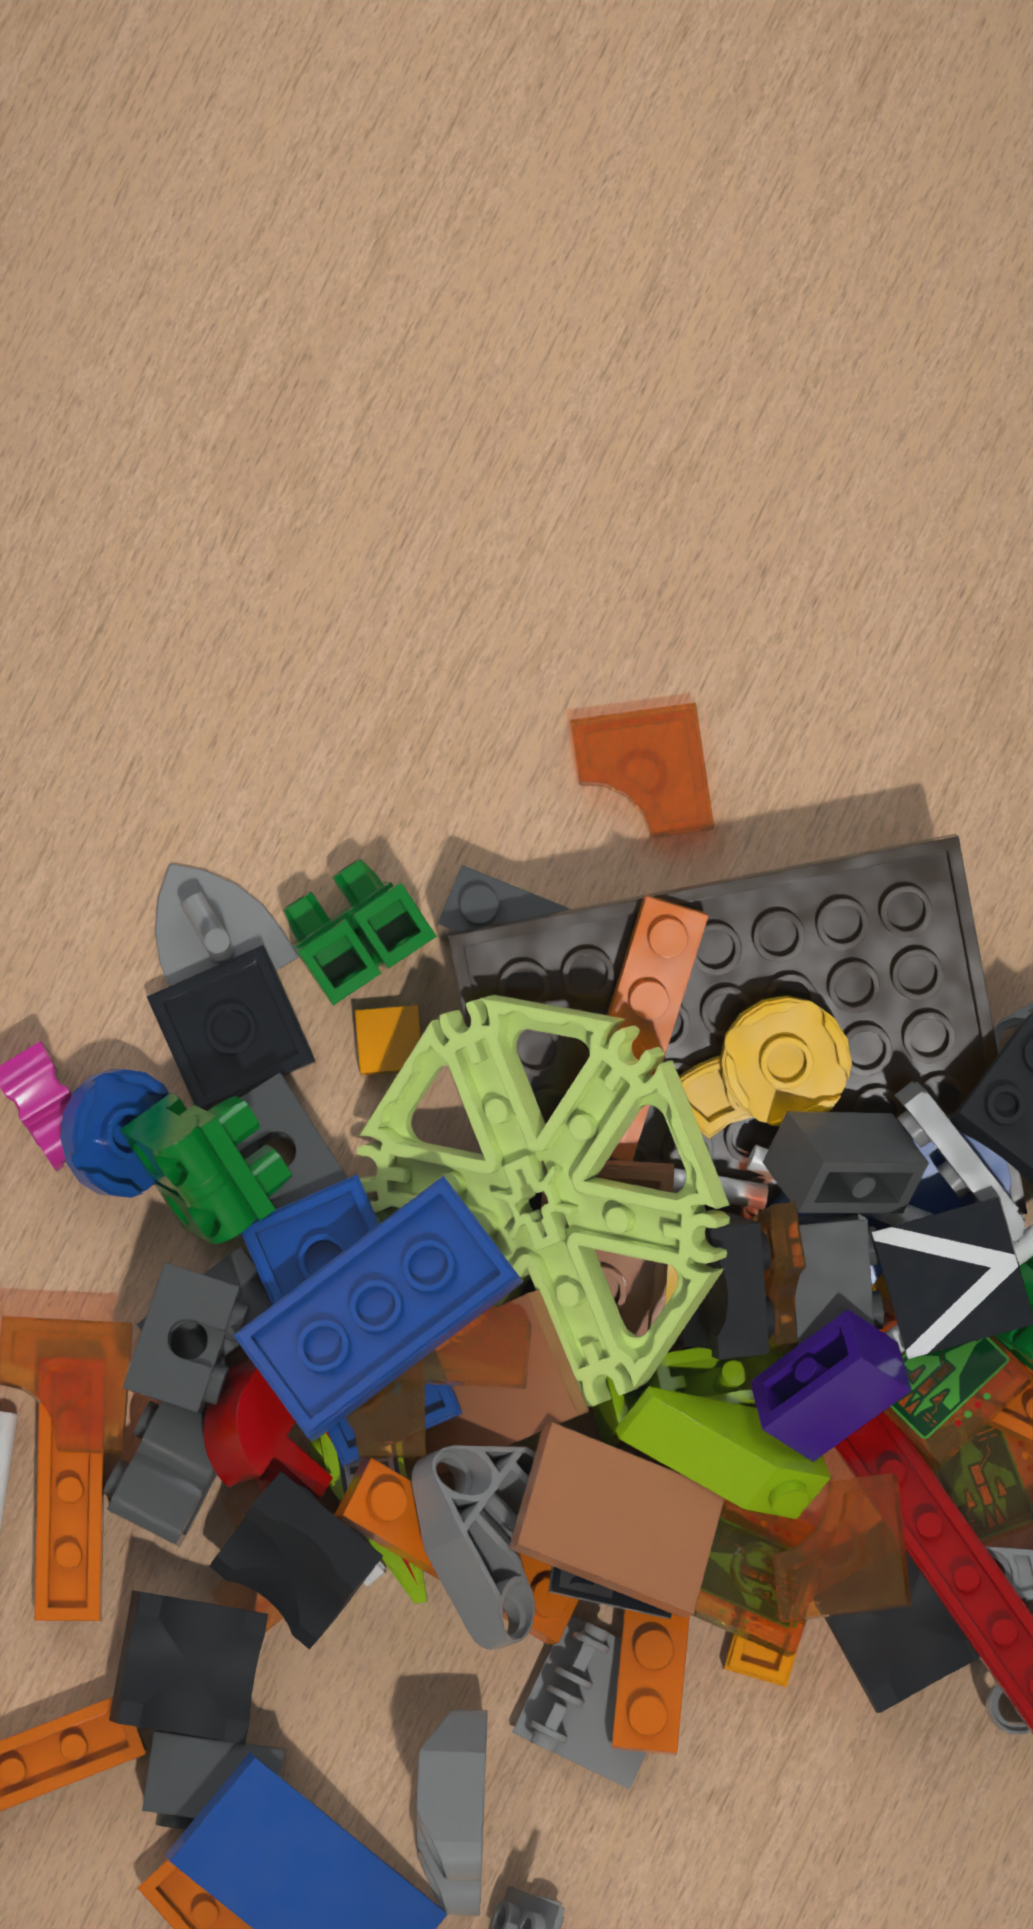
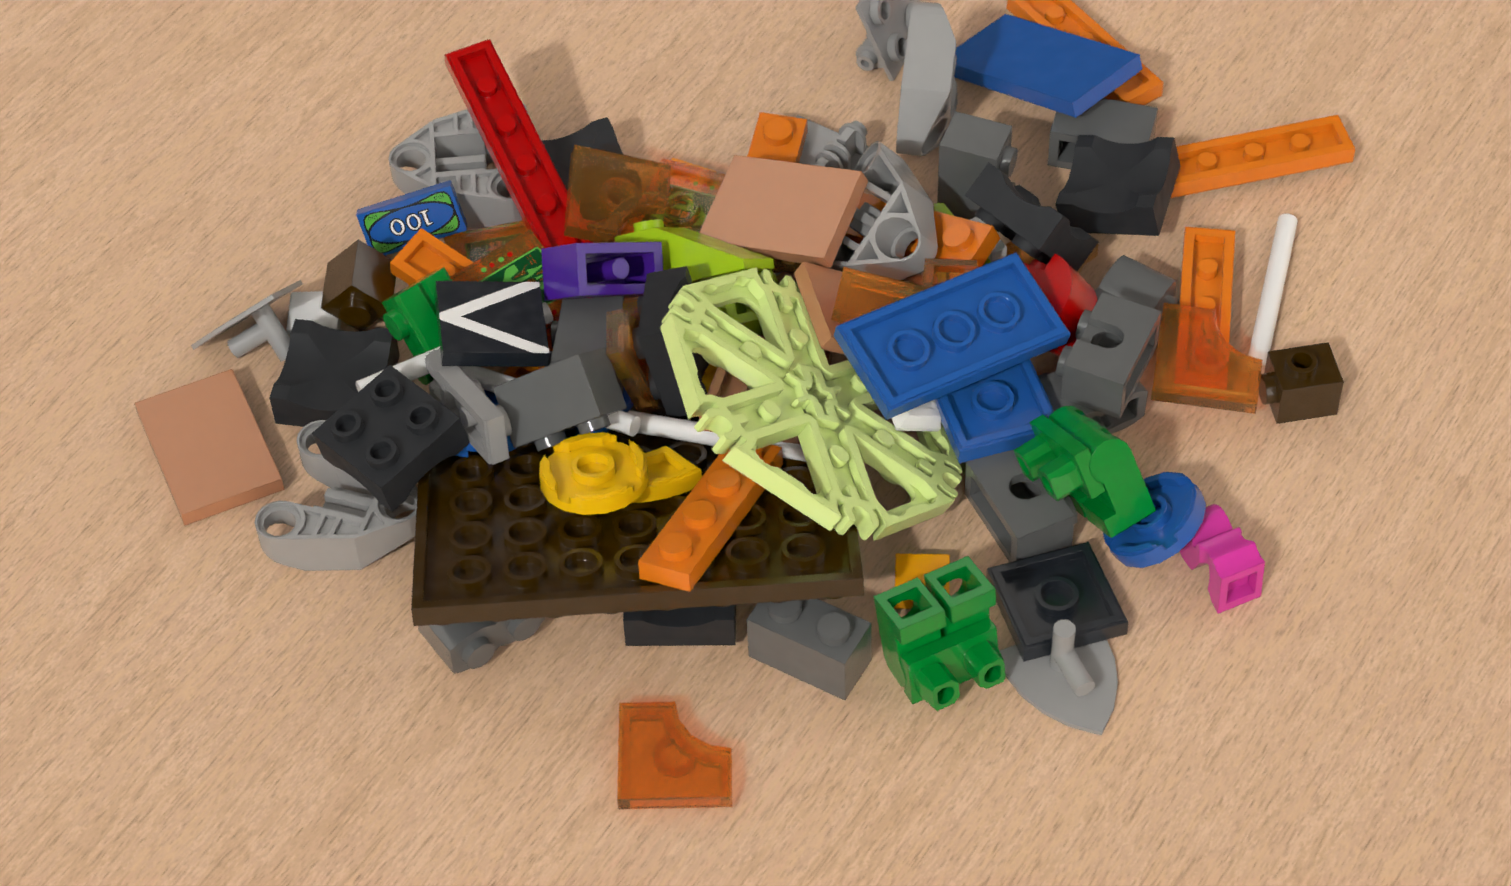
camera: 170 degrees left, 30 degrees down
(374, 1666) = (964, 154): none -> dark grey brick

